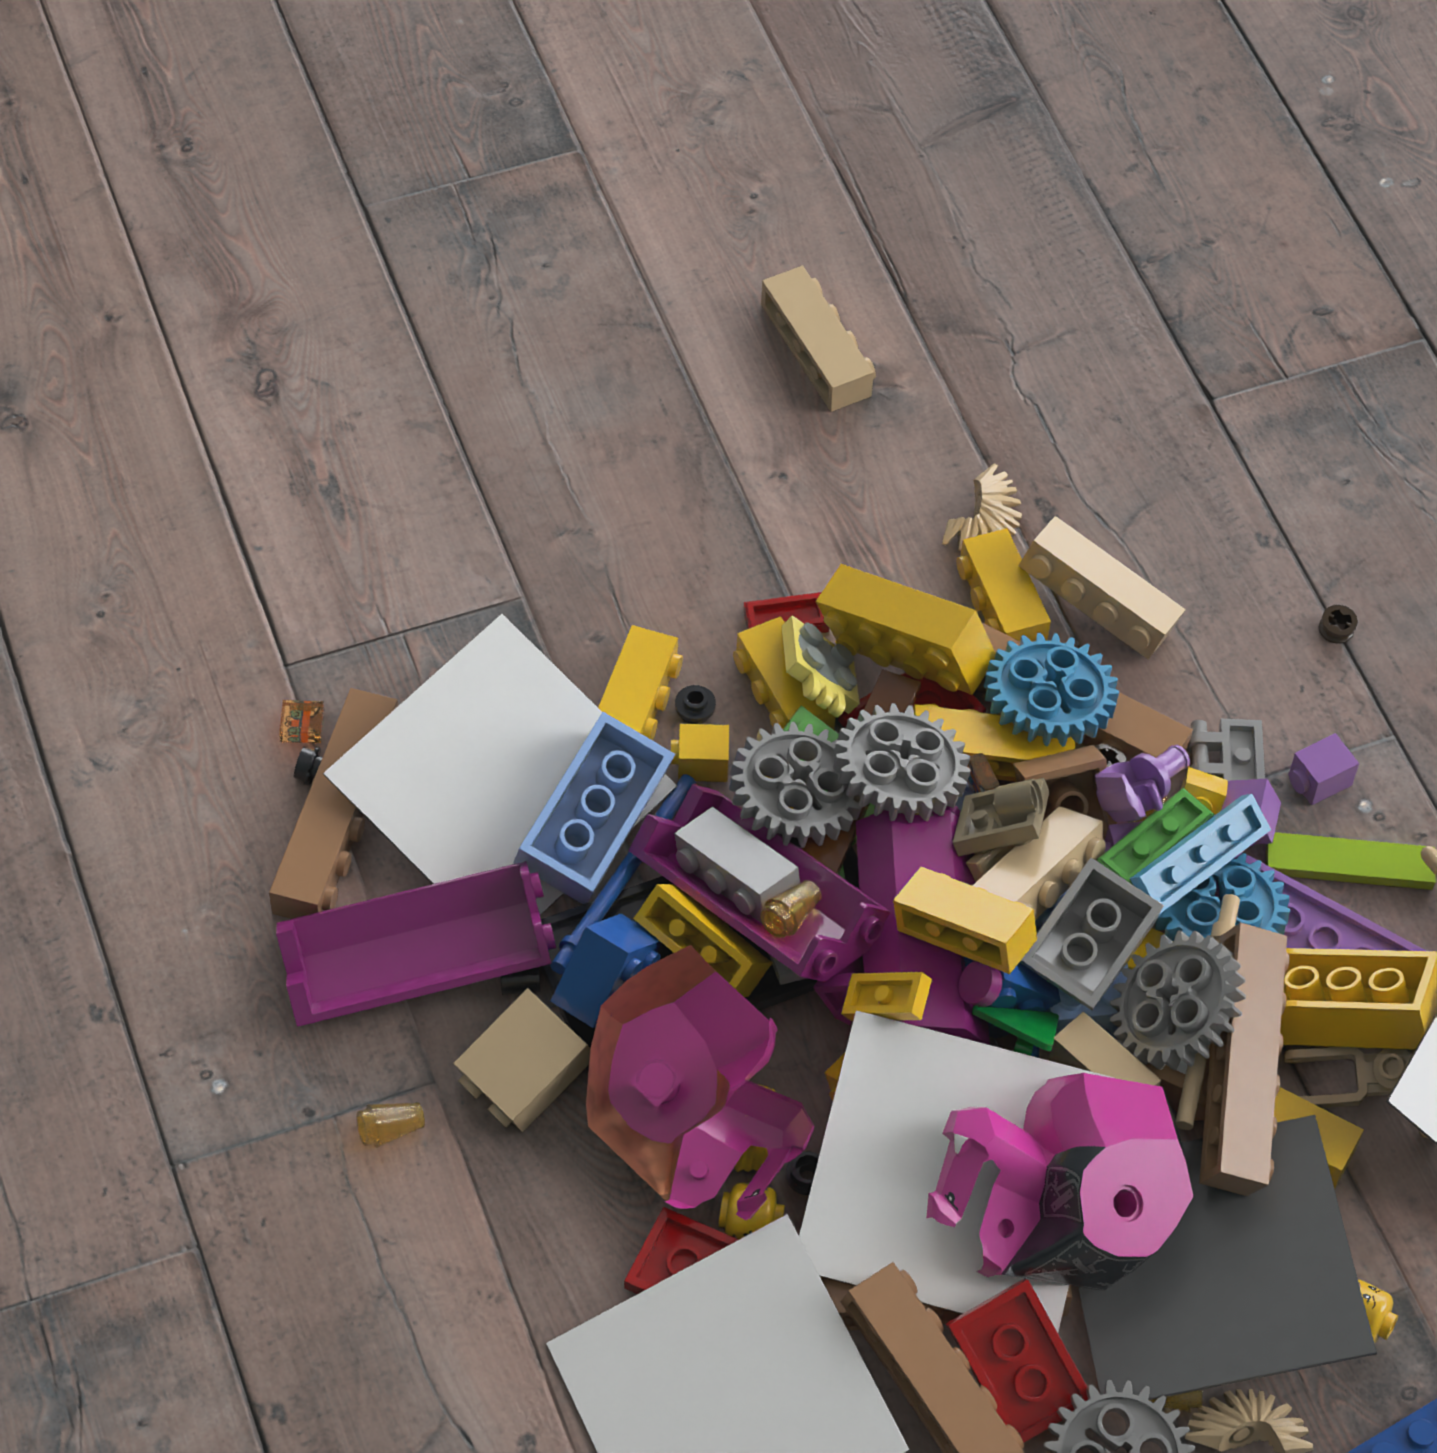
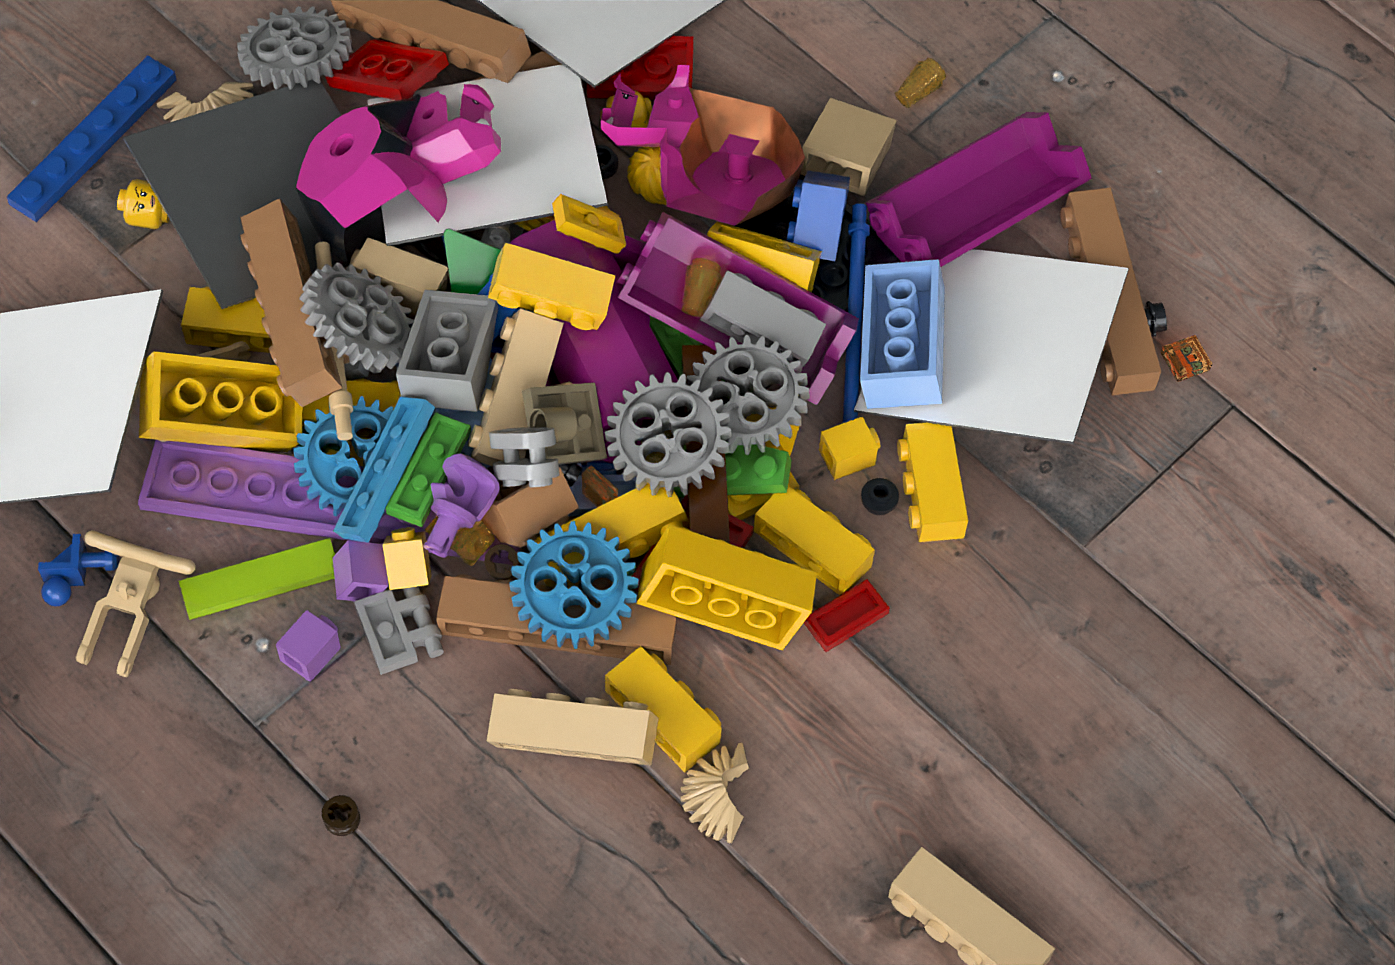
camera: 155 degrees right, 5 degrees up
(820, 666) = (786, 528): piece -> none
(1062, 777) = (517, 470): none -> light grey brick

